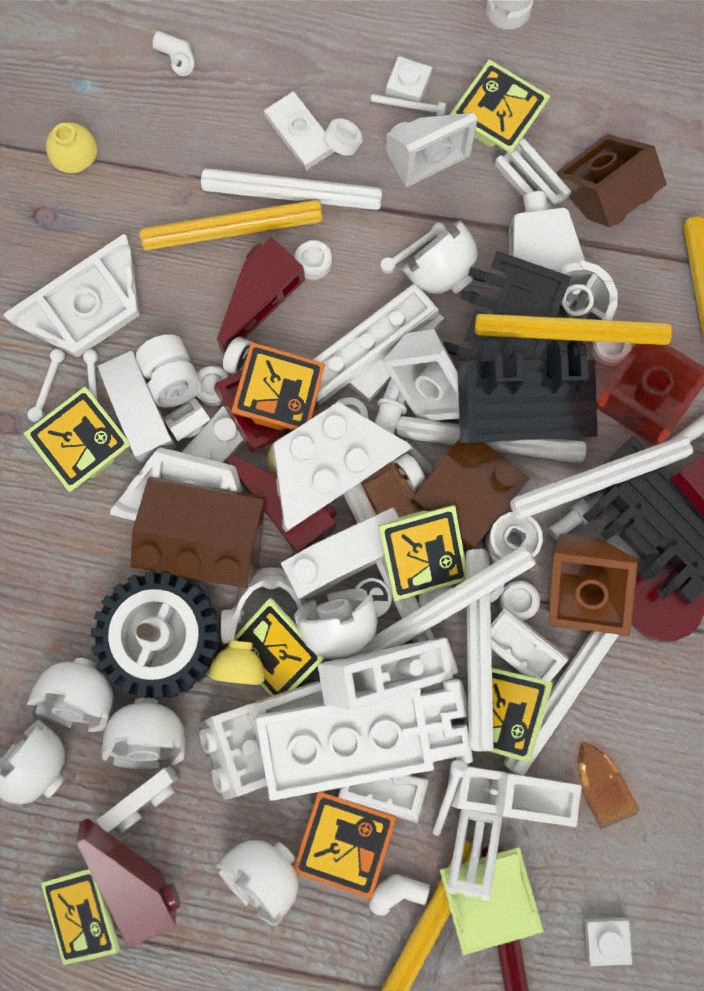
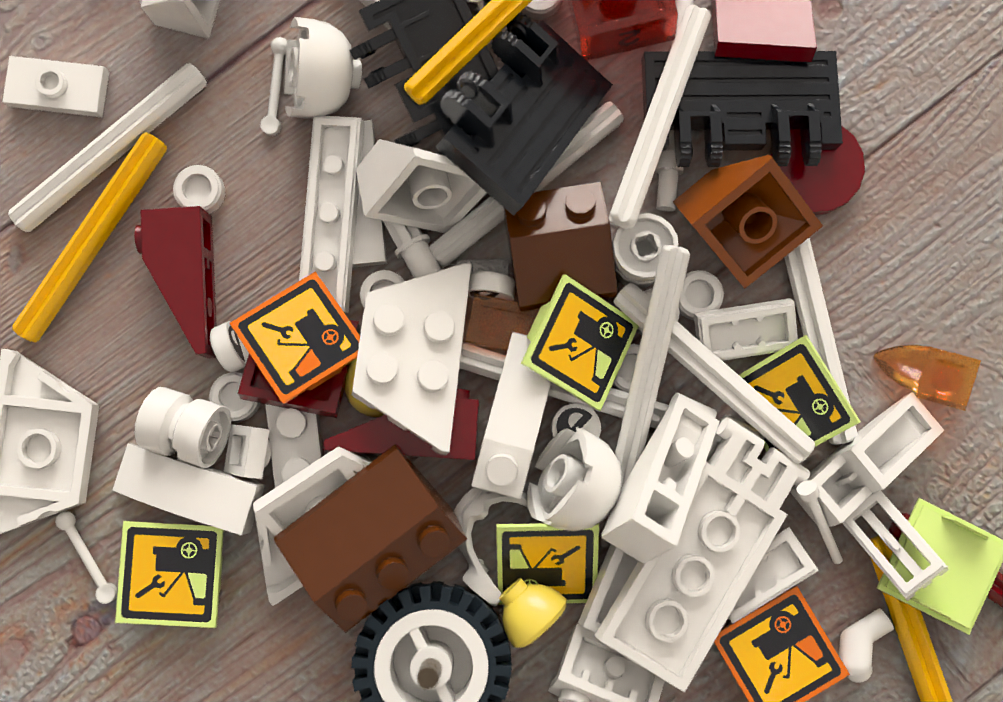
camera: 50 degrees left, 5 degrees up
(90, 357) = (97, 490): white hinge -> none
(343, 137) = (102, 51): white tile -> none

